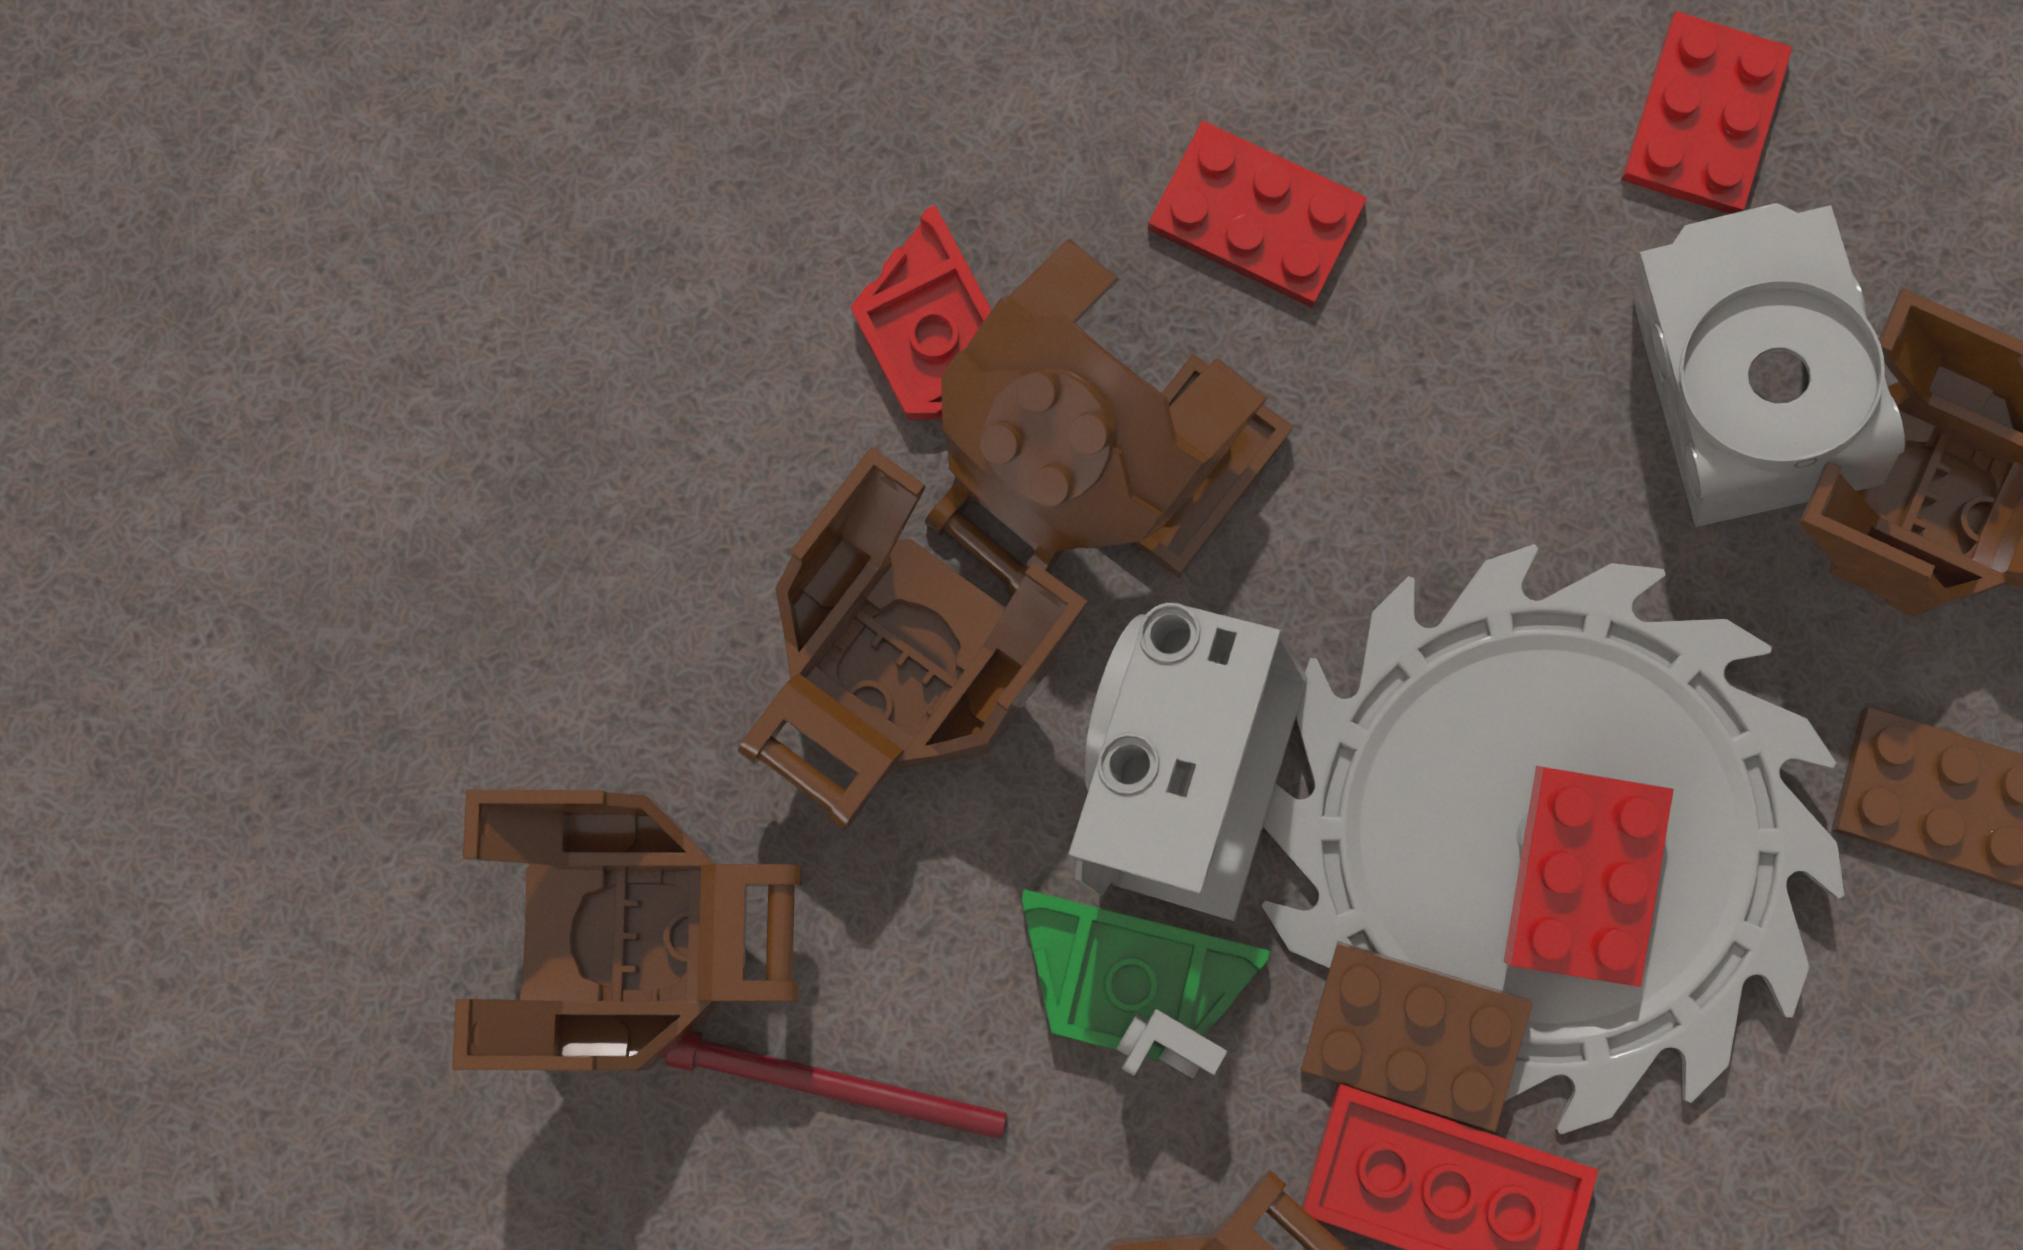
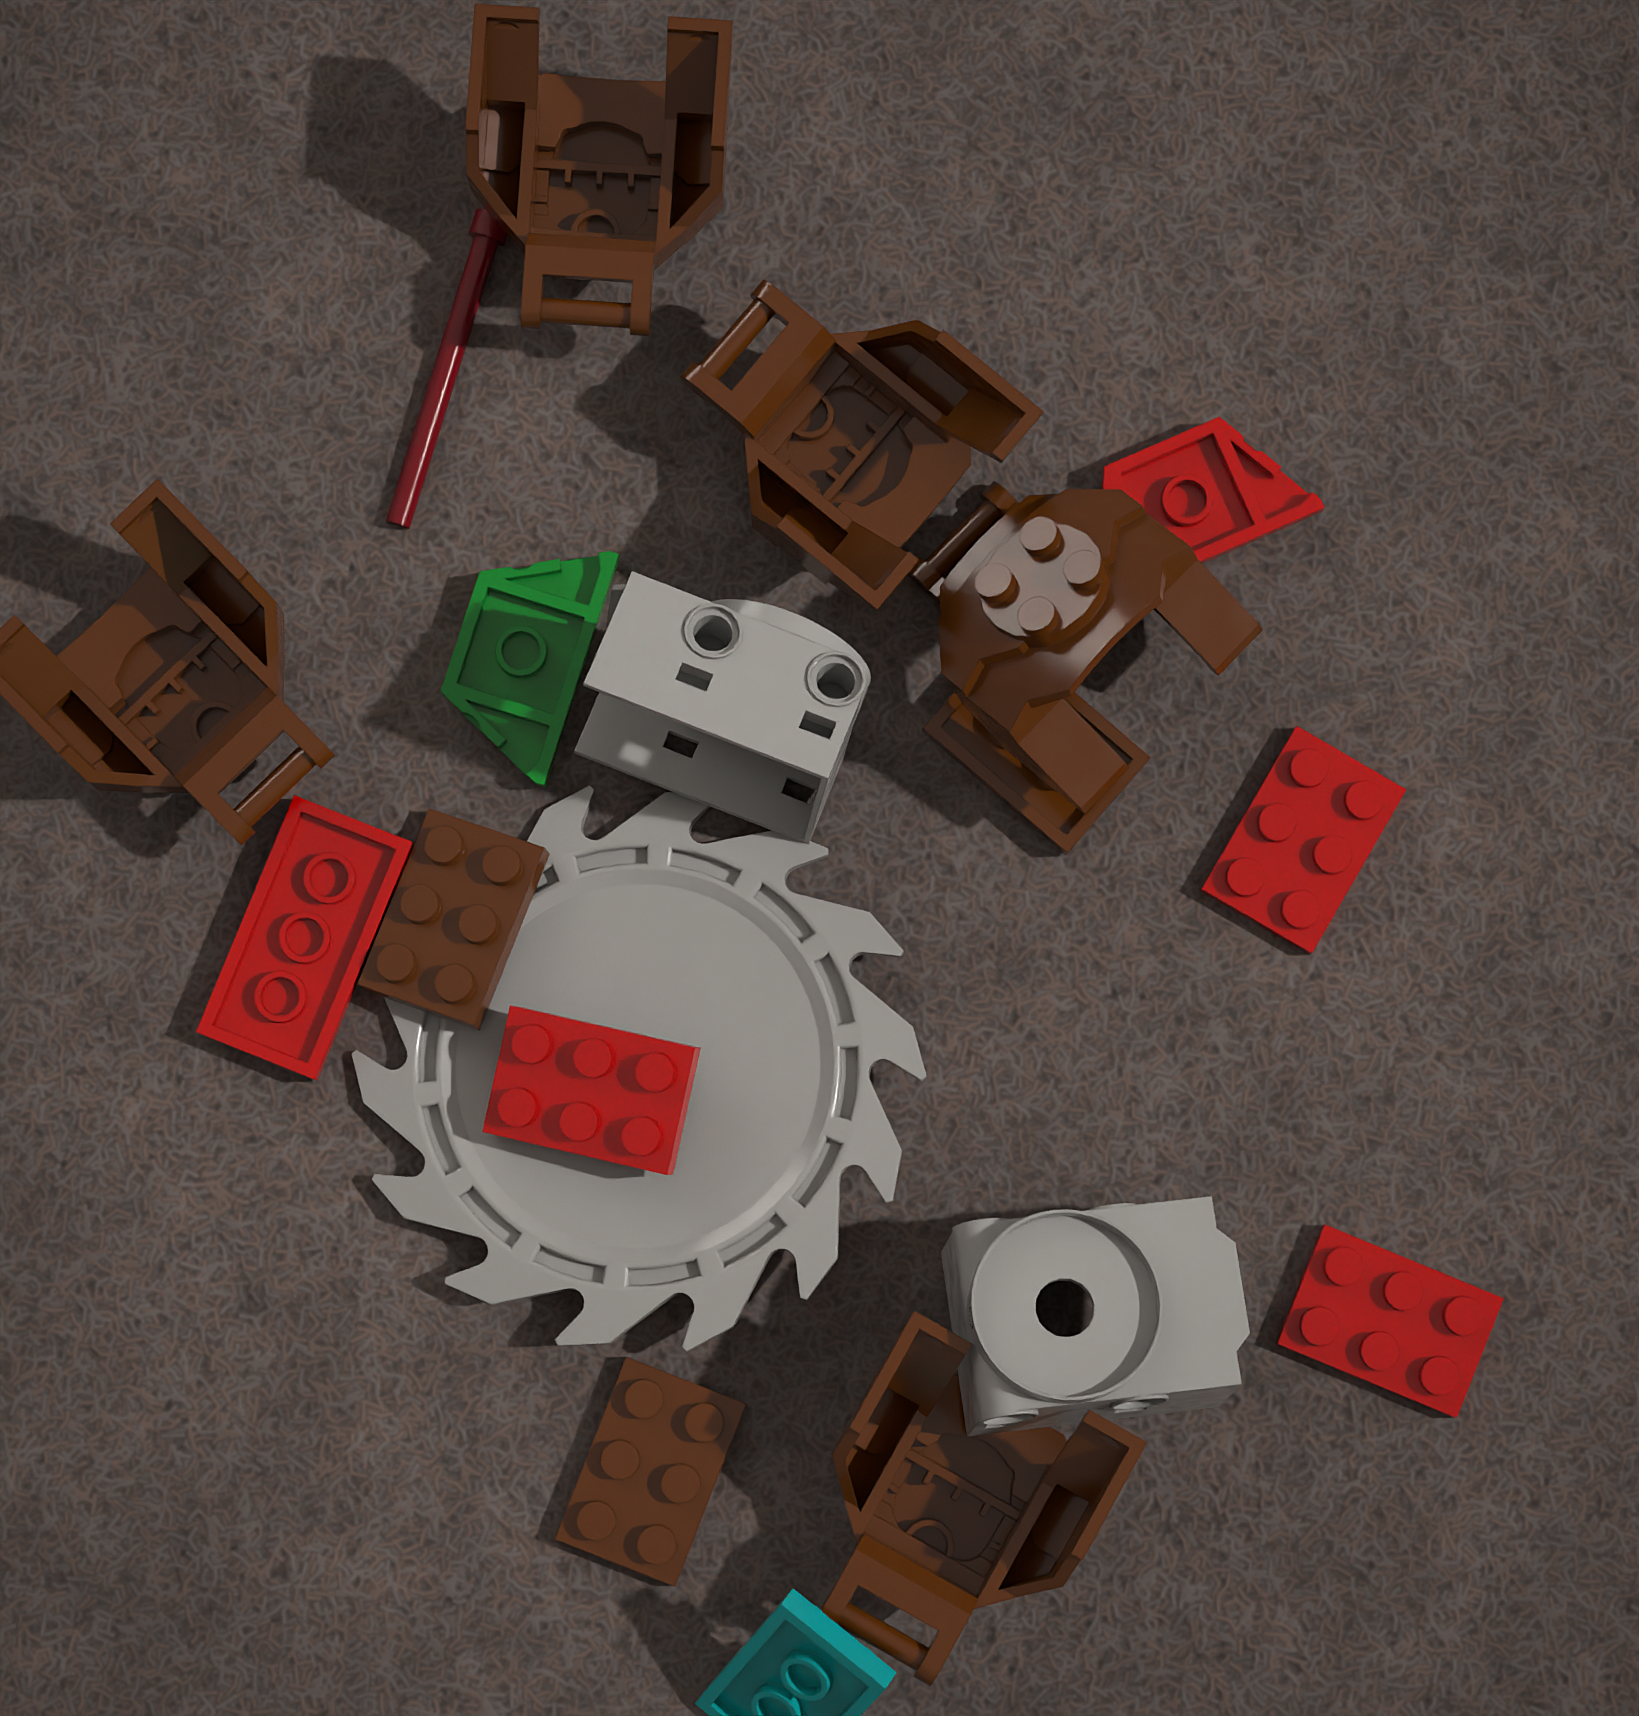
camera: 85 degrees right, 5 degrees up
(1182, 1046) = (457, 687): light grey bracket -> none

